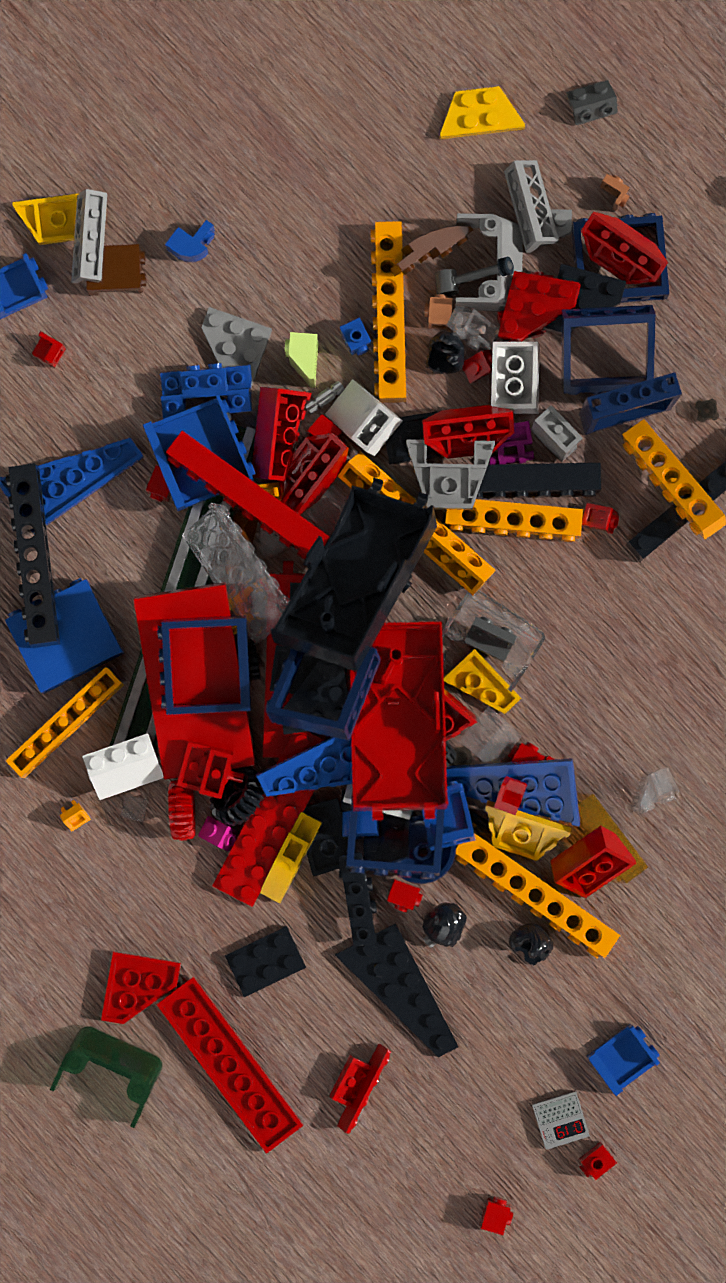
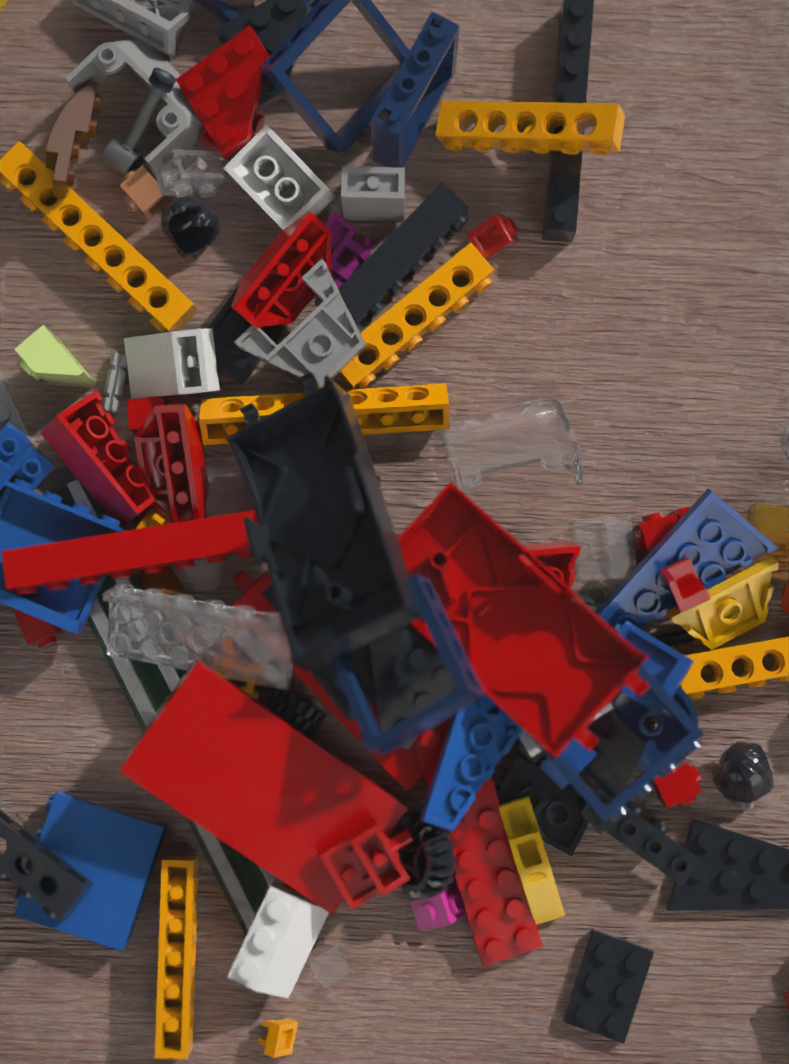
camera: 45 degrees left, 0 degrees up
(166, 675) = (231, 814): dark blue window -> none
(181, 812) = (382, 928): red gear -> none
(356, 337) = (86, 295): blue brick -> none
(478, 366) = (233, 206): red bracket -> none
(483, 682) = (542, 502): yellow wing -> none
(490, 638) = (508, 453): dark grey bracket -> none
(708, 404) = (490, 30): clear smoke plate -> none

